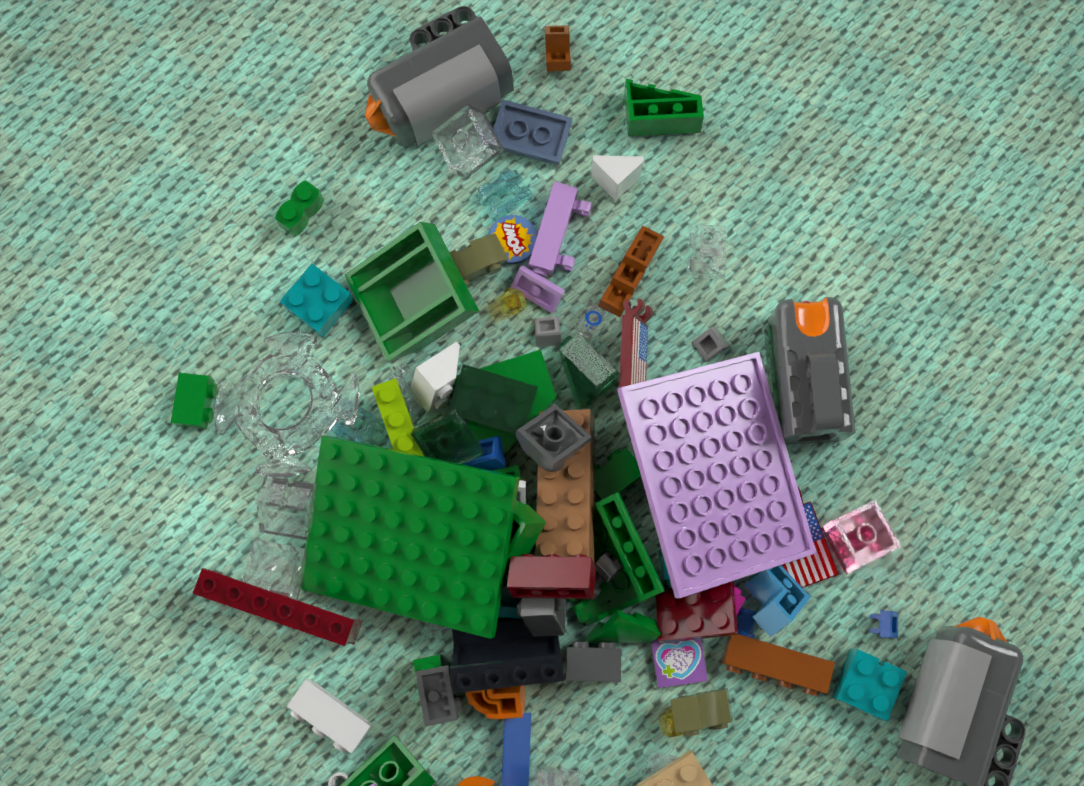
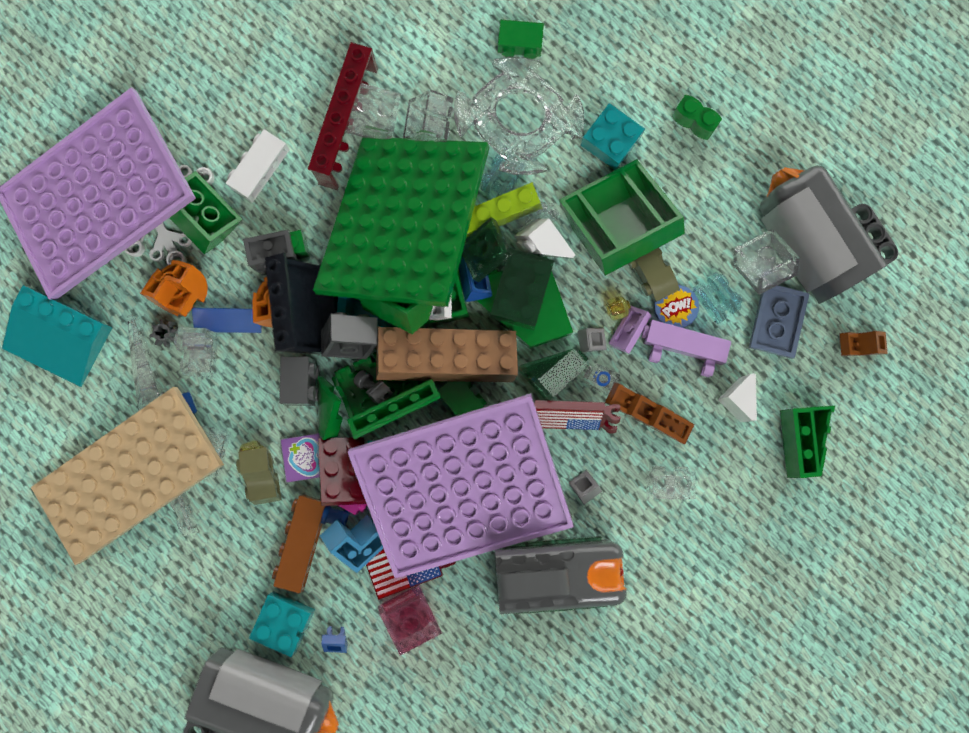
camera: 90 degrees right, 5 degrees up
(551, 577) = (364, 339): dark red brick -> none
(552, 438) = (488, 339): dark grey slope -> none

